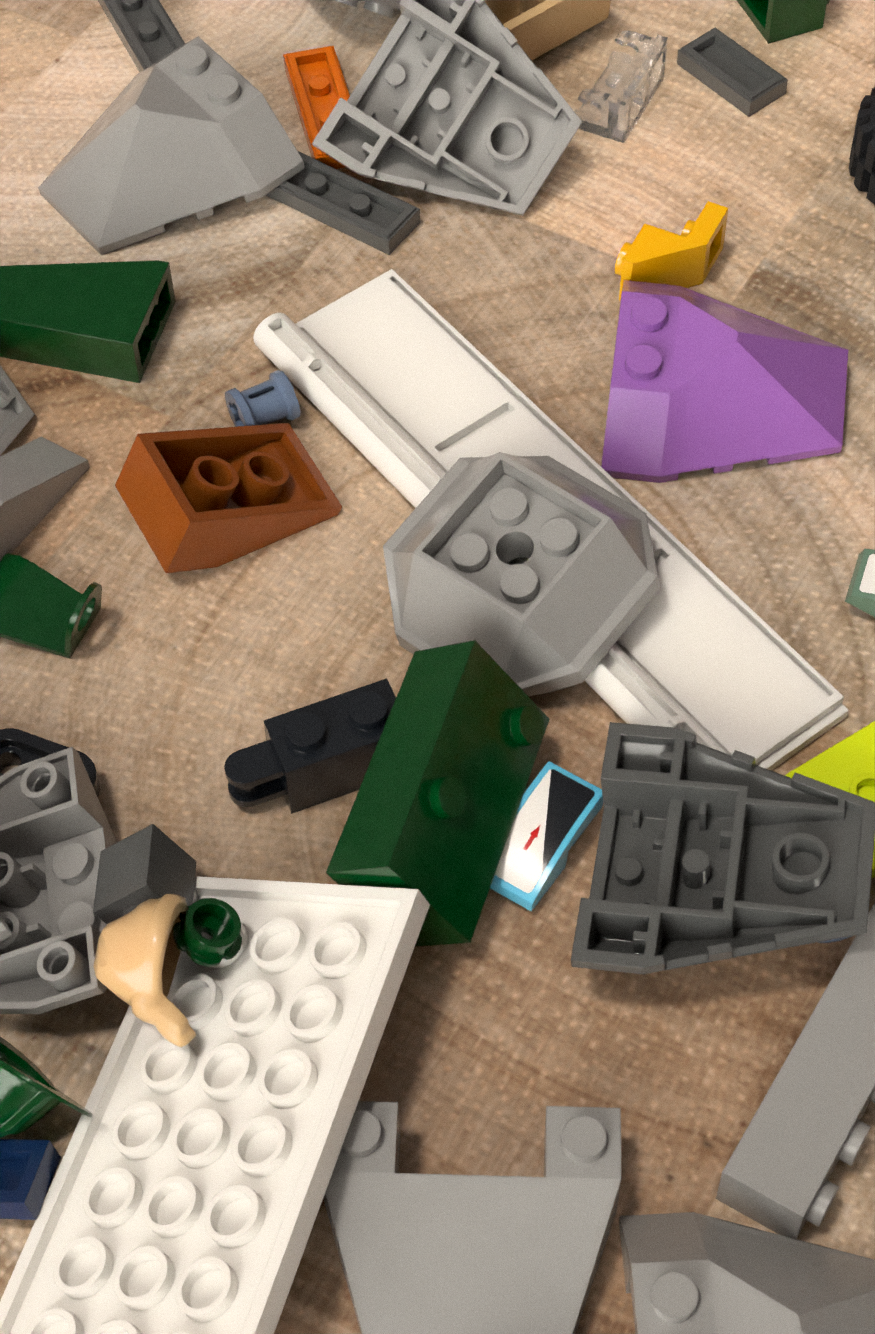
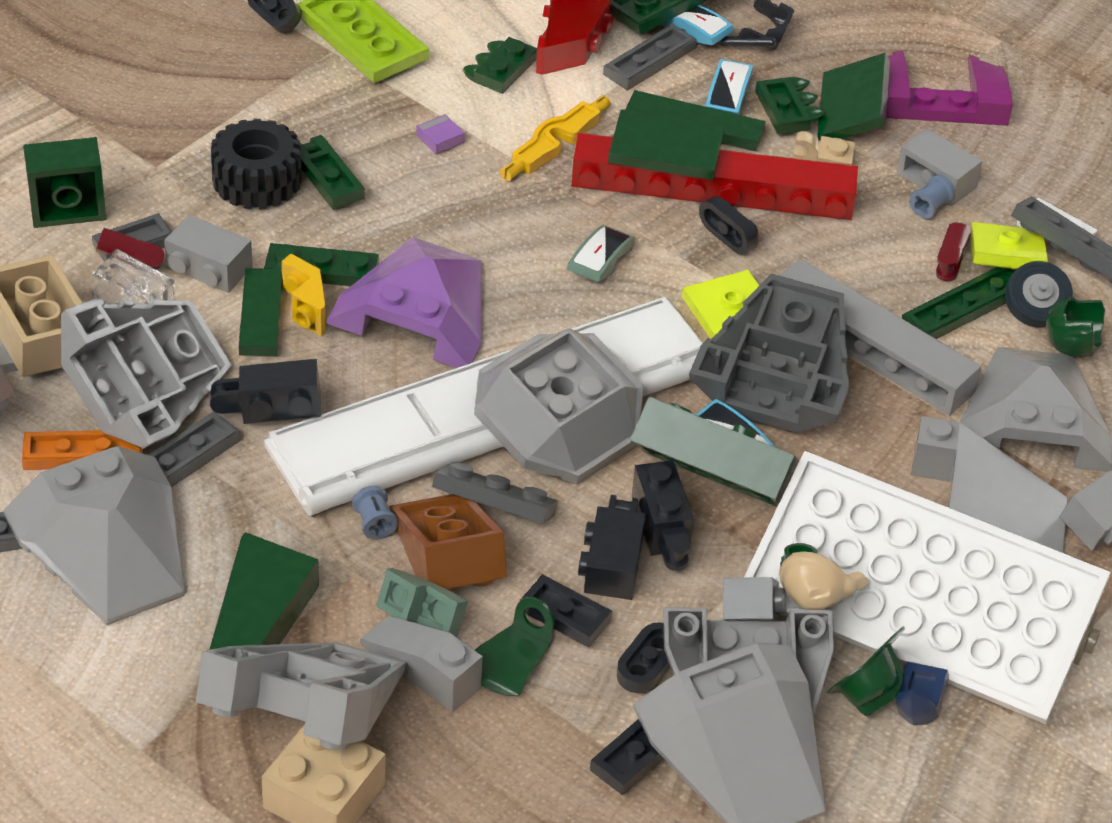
camera: 85 degrees left, 10 degrees down
(95, 478) = (421, 601): none -> sand green slope
(114, 655) = (573, 613): none -> black plate
(226, 694) = (614, 549): none -> black brick
(330, 536) = (495, 492): none -> dark grey plate
(457, 254) = (270, 392): none -> black brick
(611, 222) = (260, 312): none -> dark green tile
(689, 59) = (142, 251): none -> dark red bar
(716, 139) = (208, 253): none -> light grey brick
(758, 262) = (335, 265): none -> dark green plate

